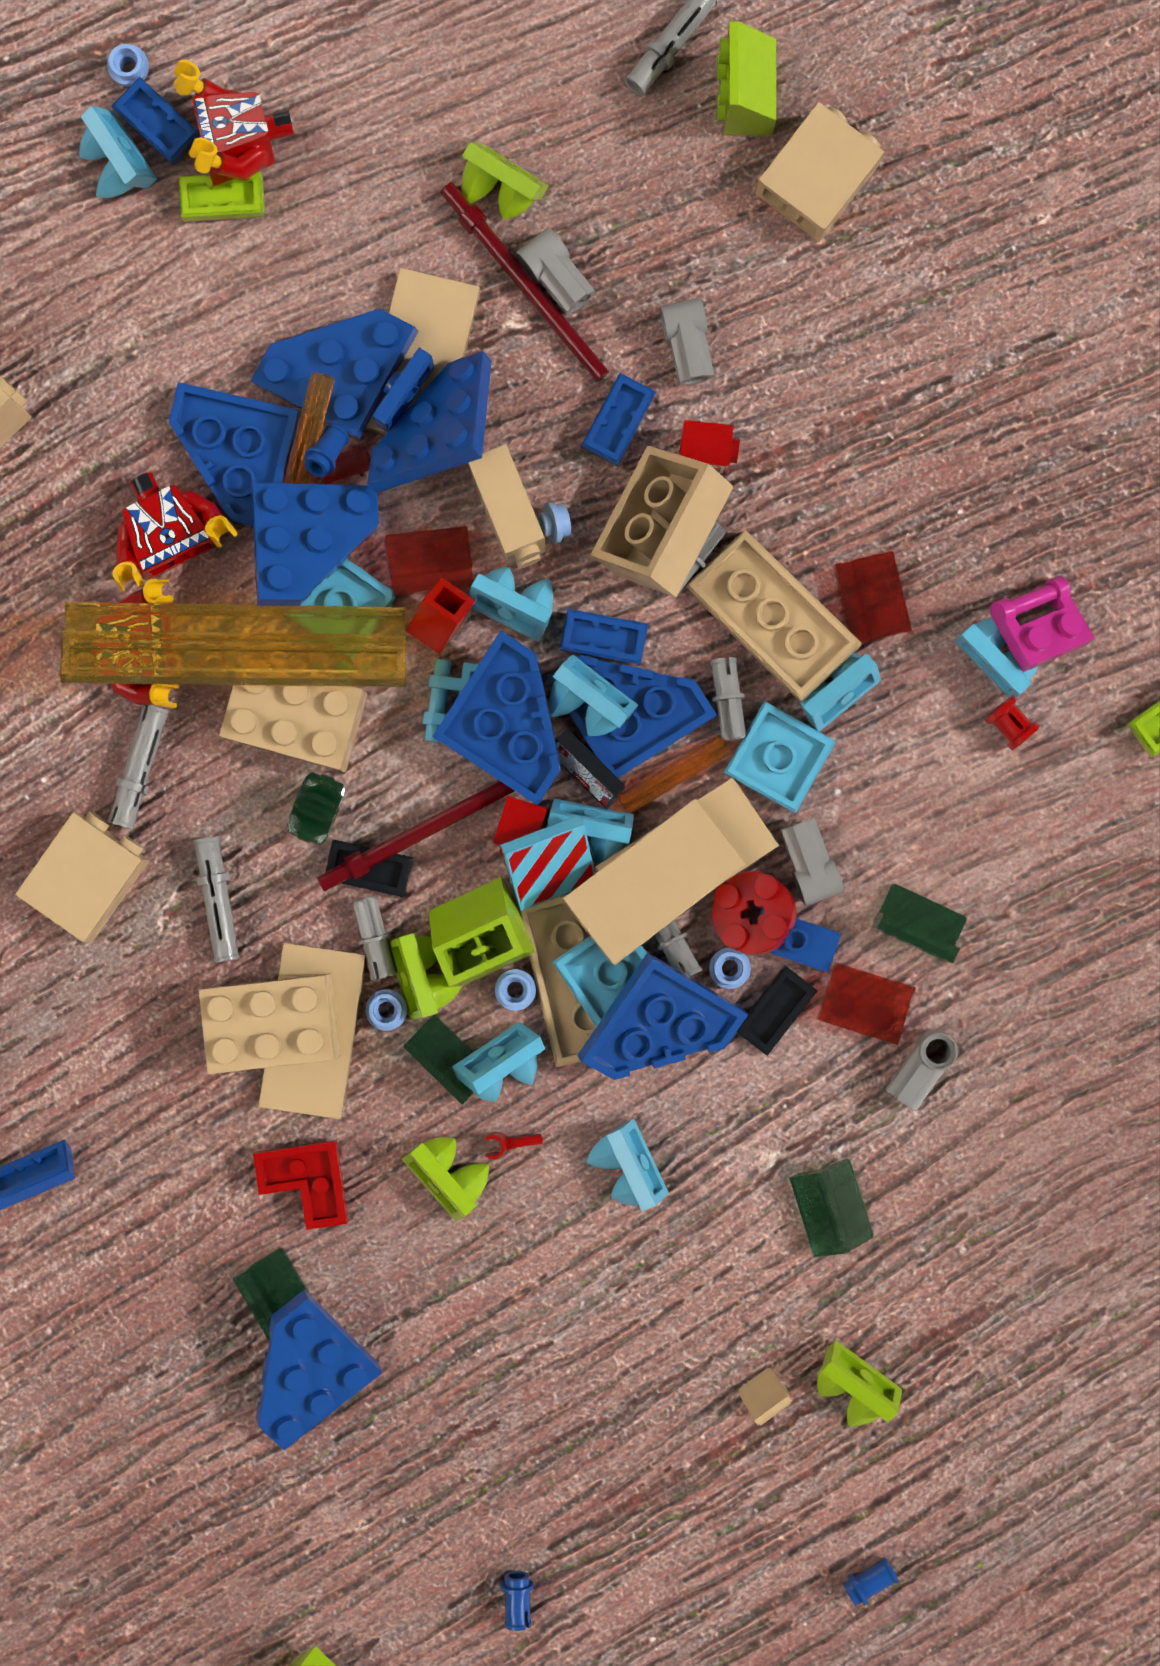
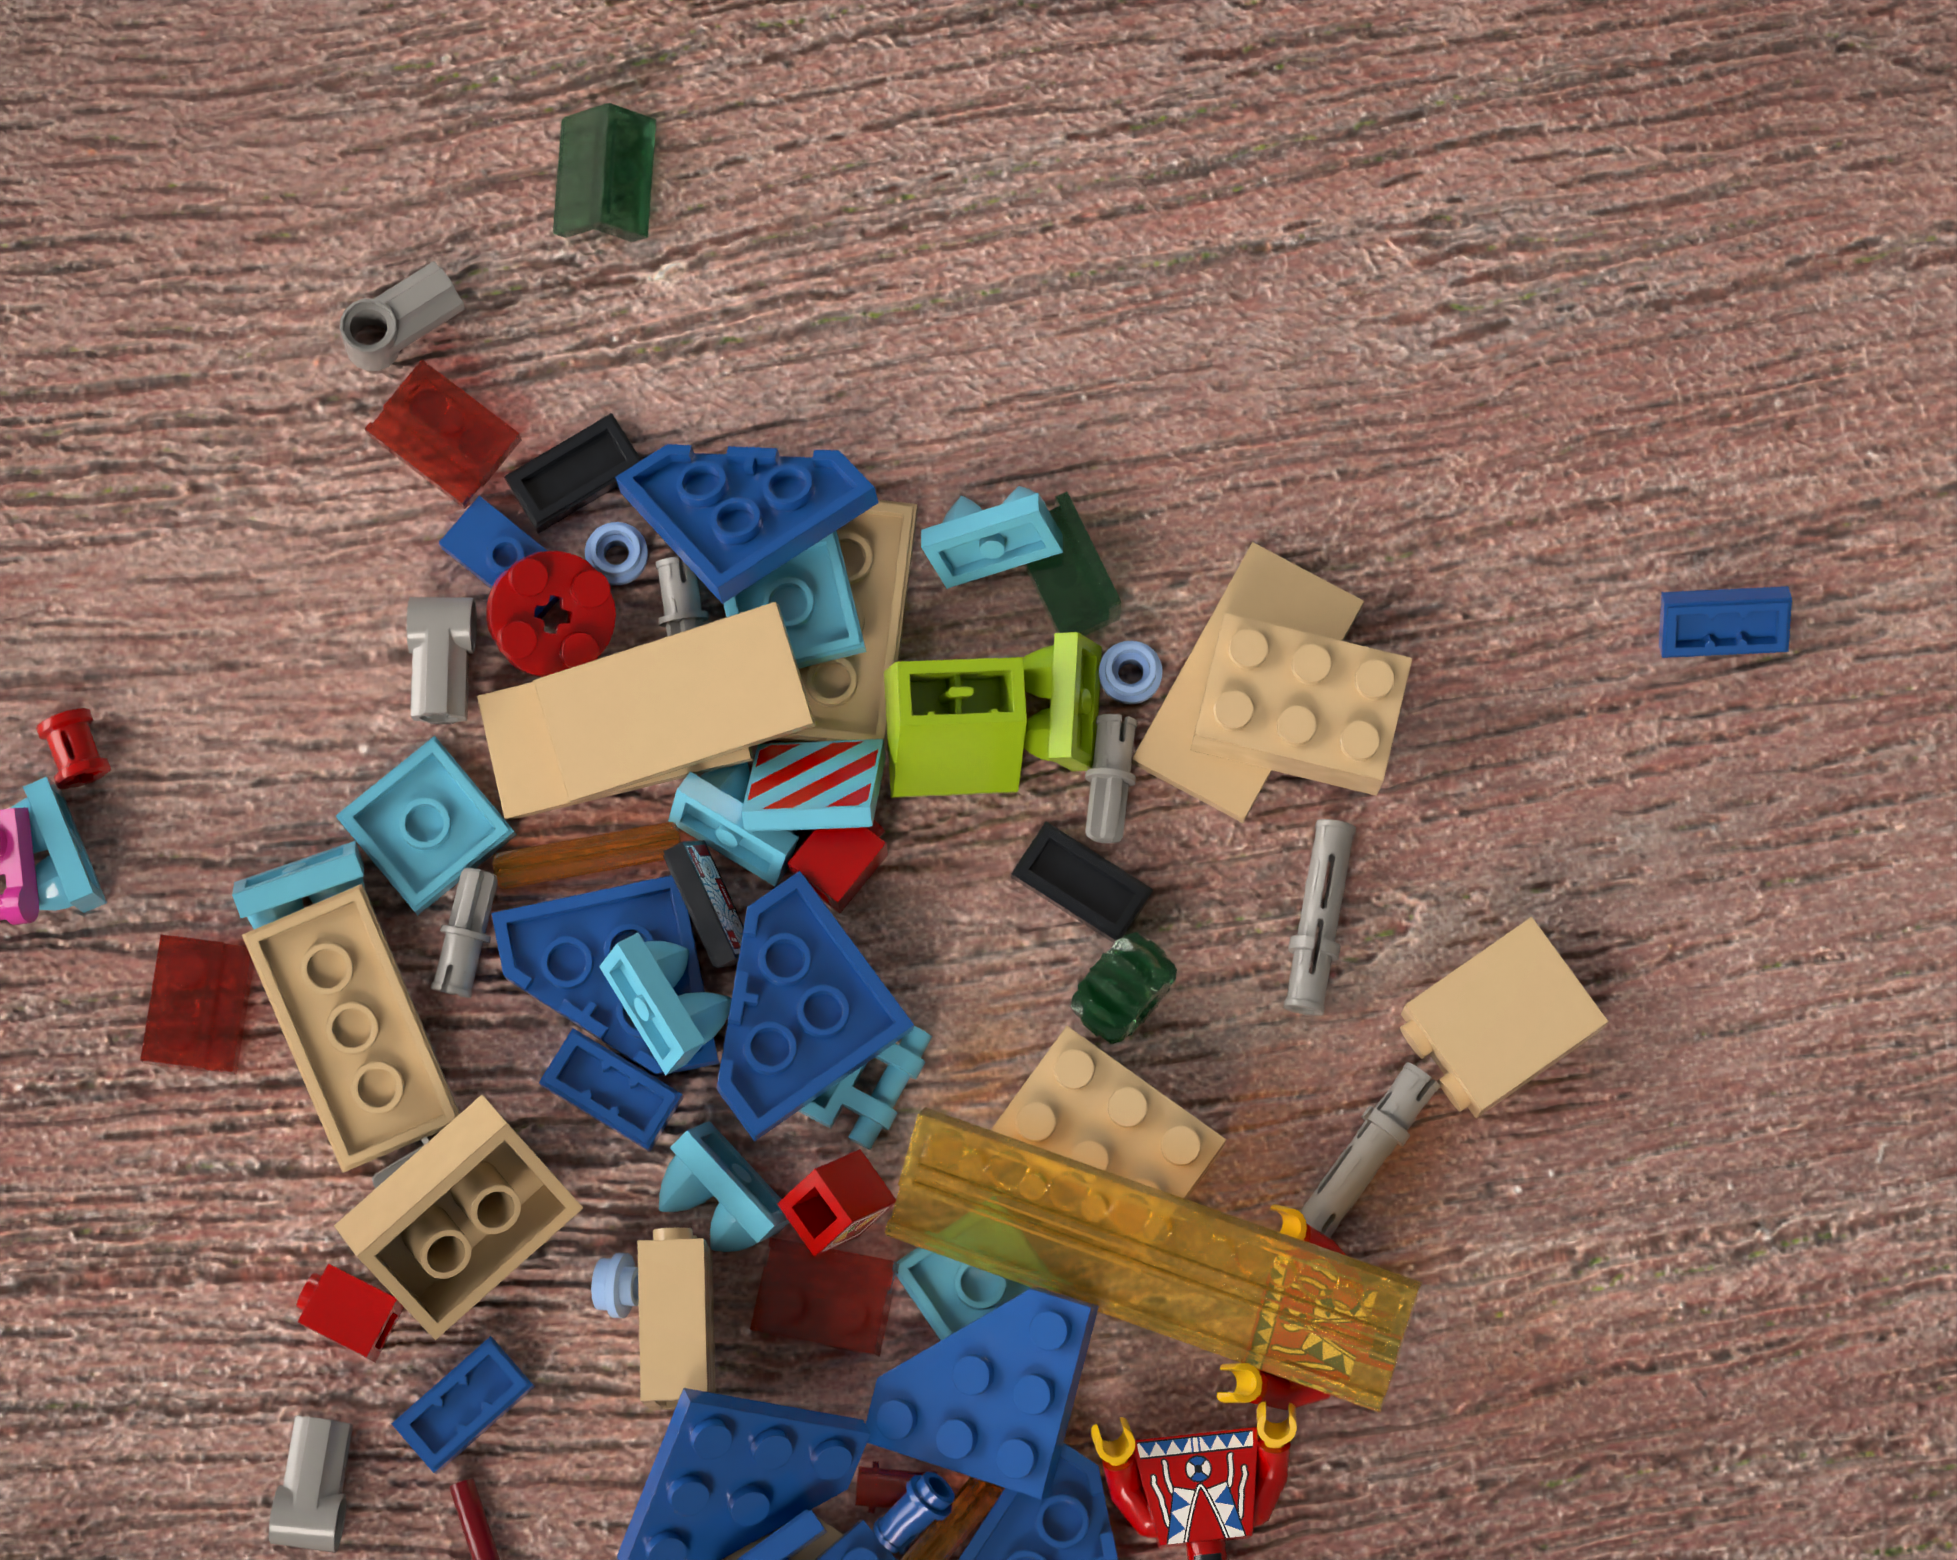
camera: 155 degrees left, 10 degrees down
(269, 1286) = (1431, 330): clear green panel -> none
(308, 1370) = (1420, 212): blue plate -> none
(313, 1170) = (1316, 485): red plate -> none
(359, 864) = (1092, 887): dark red bar -> none
(456, 1191) = (1128, 385): lime tile -> none
(508, 1001) = (934, 615): light blue plate -> none
(509, 1143) = (1023, 424): red hand -> none
(627, 1150) = (858, 353): medium azure tile -> none
(920, 923) = (321, 517): clear green panel -> none

